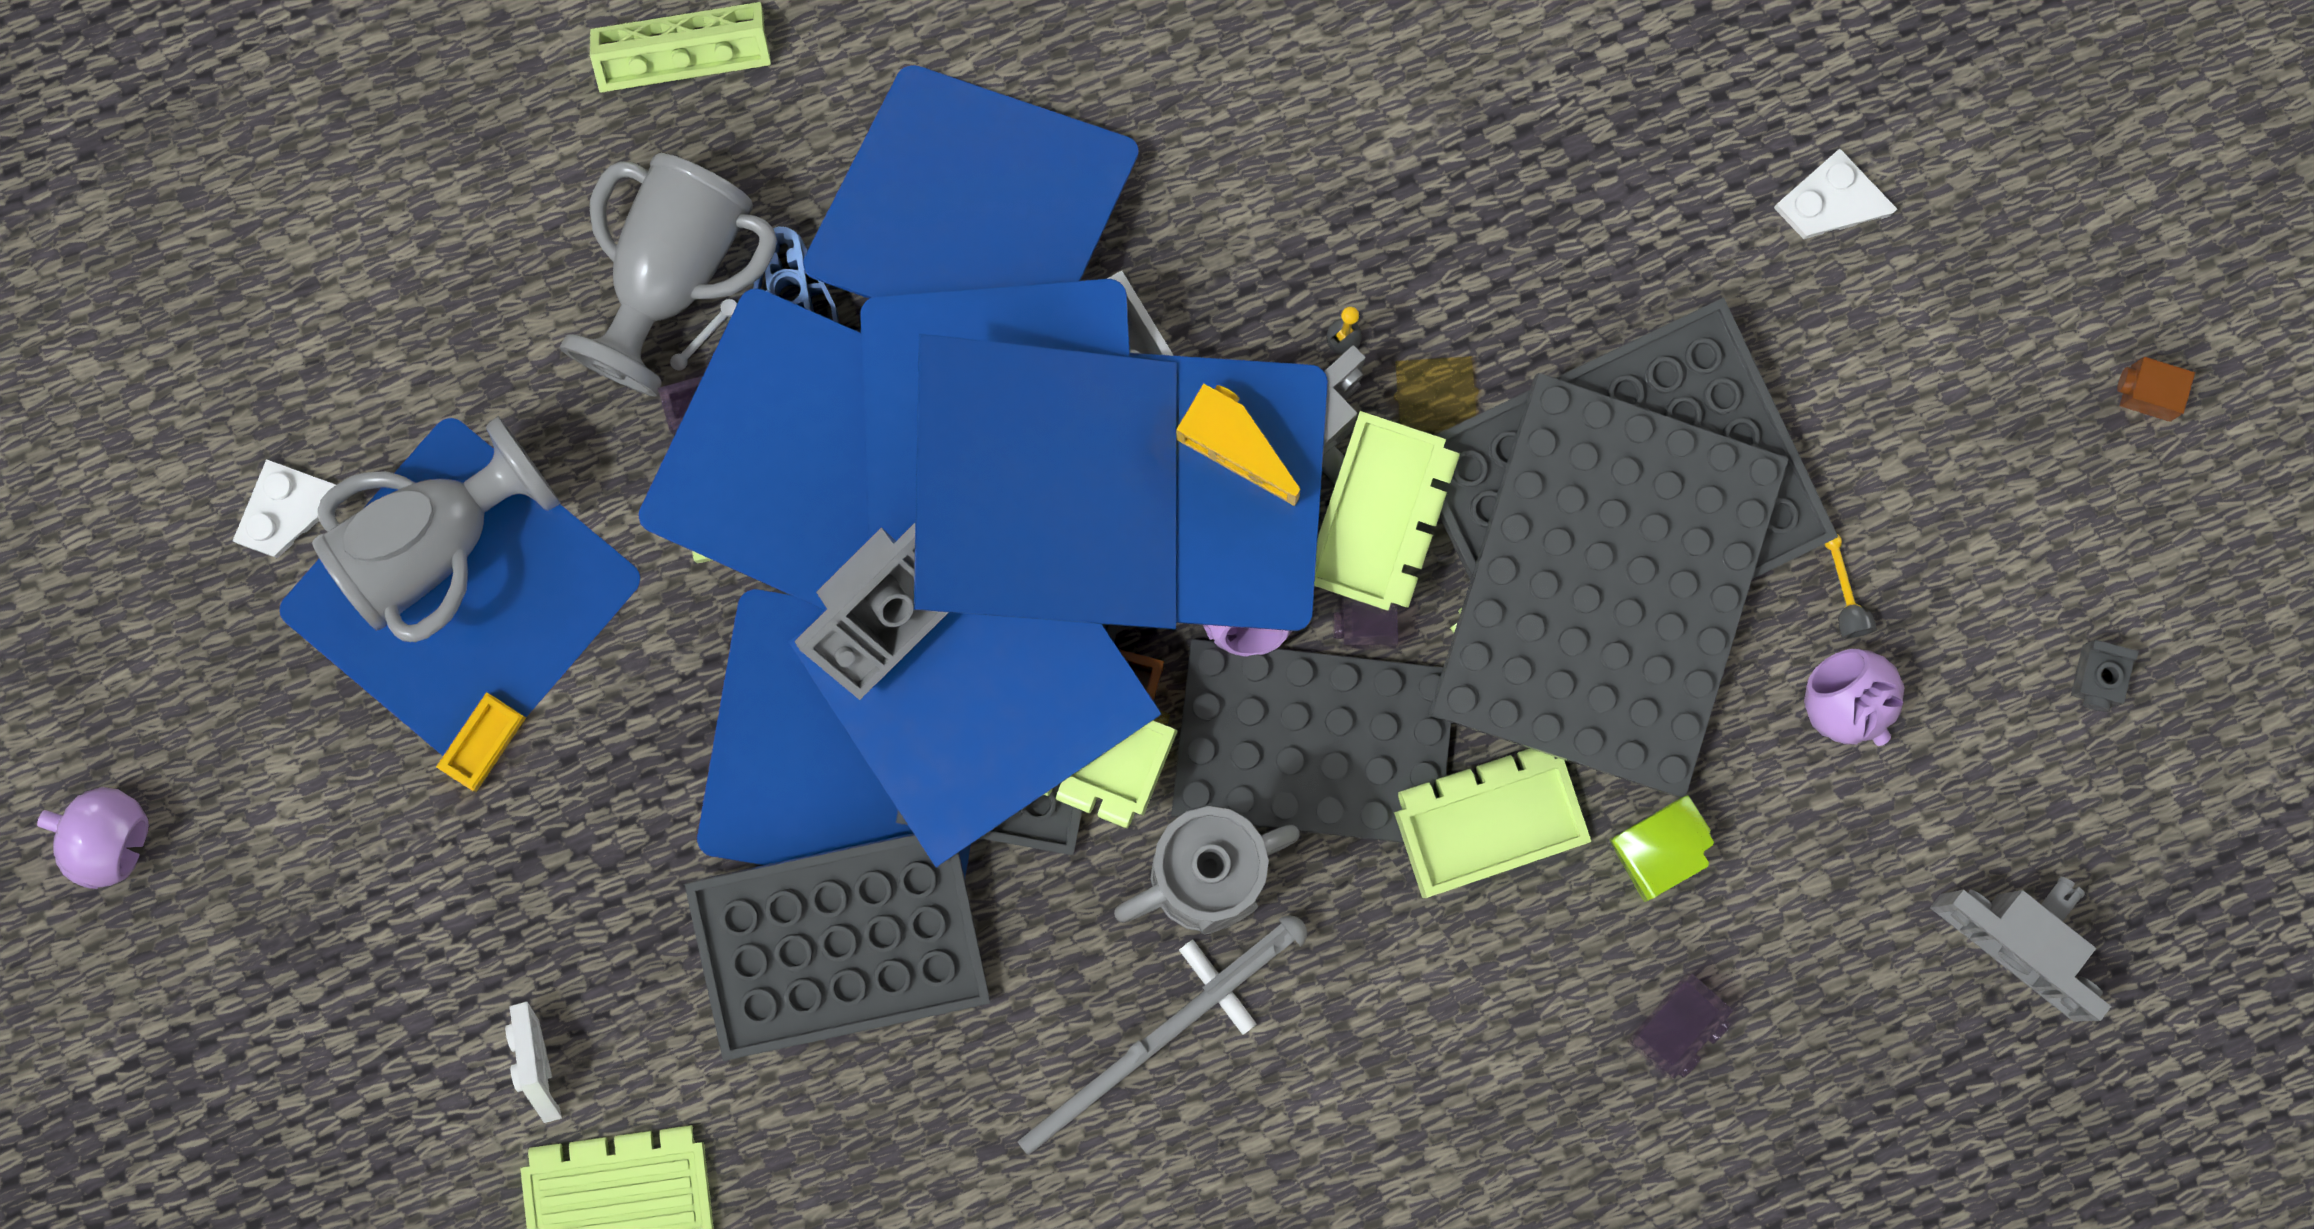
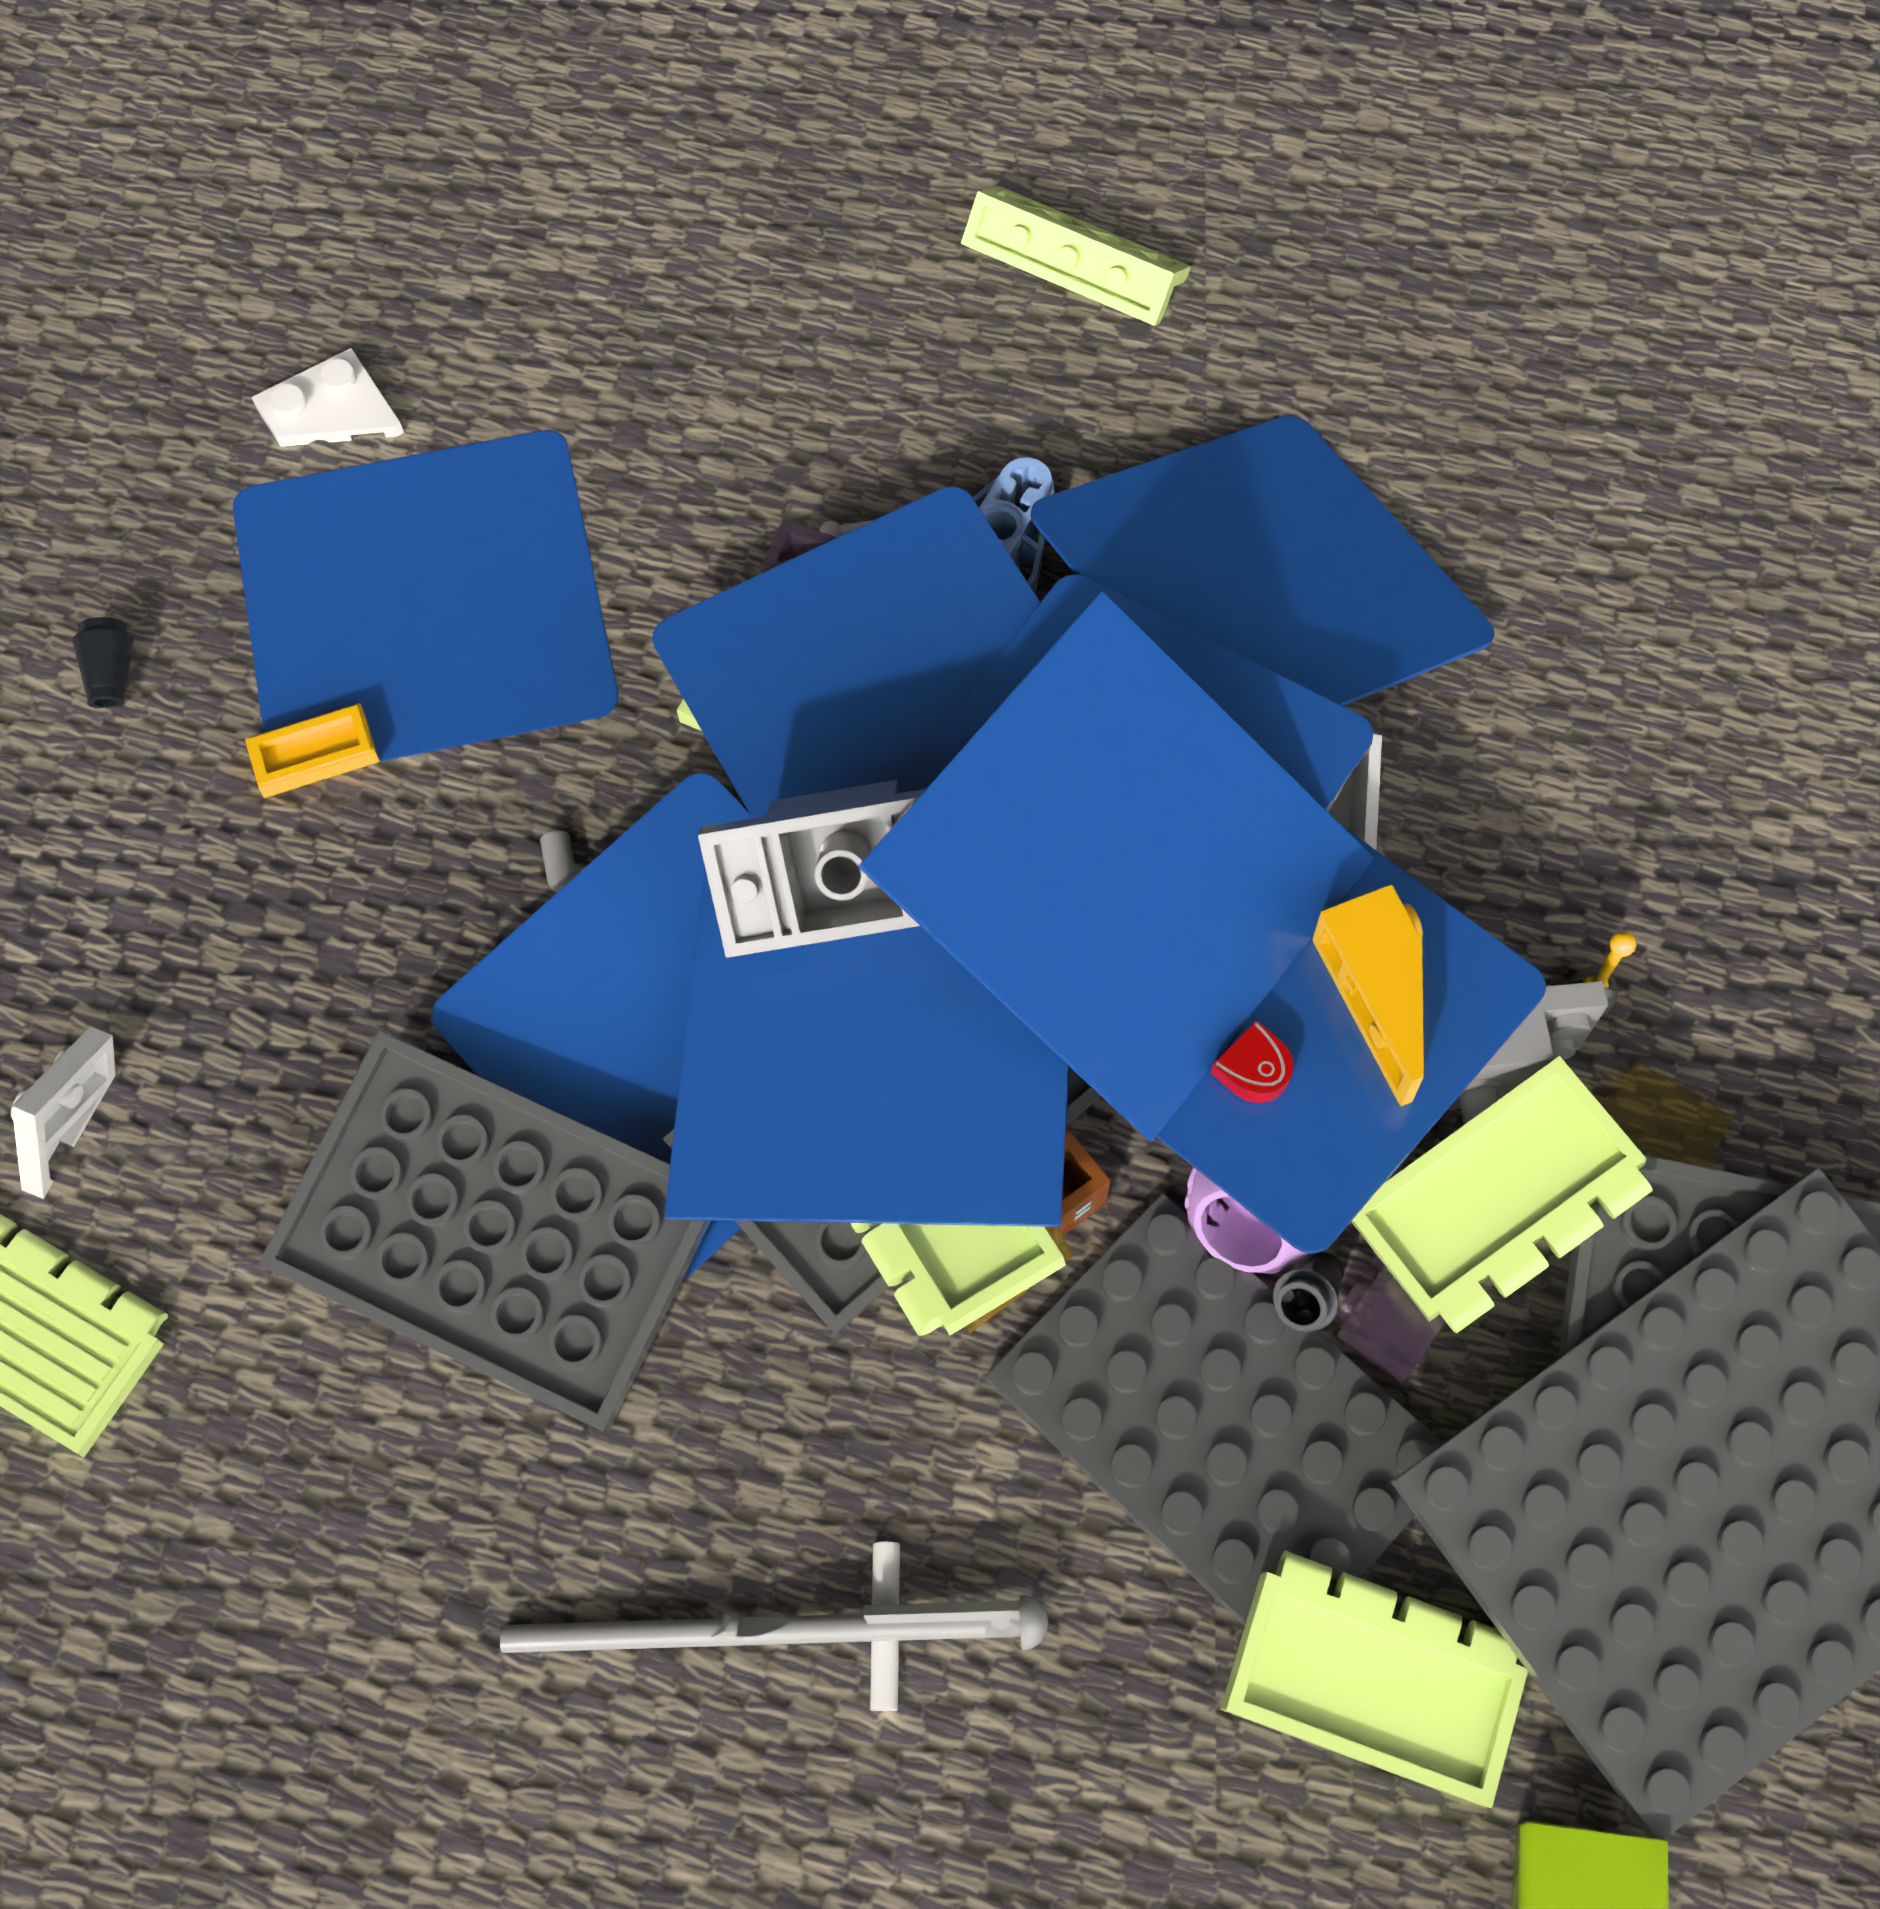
camera: 40 degrees right, 15 degrees down
(302, 783) = (103, 659): none -> black cone
(419, 535) = (411, 492): light grey piece -> none
(665, 257) = (895, 410): light grey piece -> none
(699, 705) = (558, 859): none -> light grey arm
(1201, 542) = (1255, 1066): none -> red tile
(1208, 870) = (975, 1445): light grey piece -> none
(1314, 643) = (1309, 1293): none -> black cone

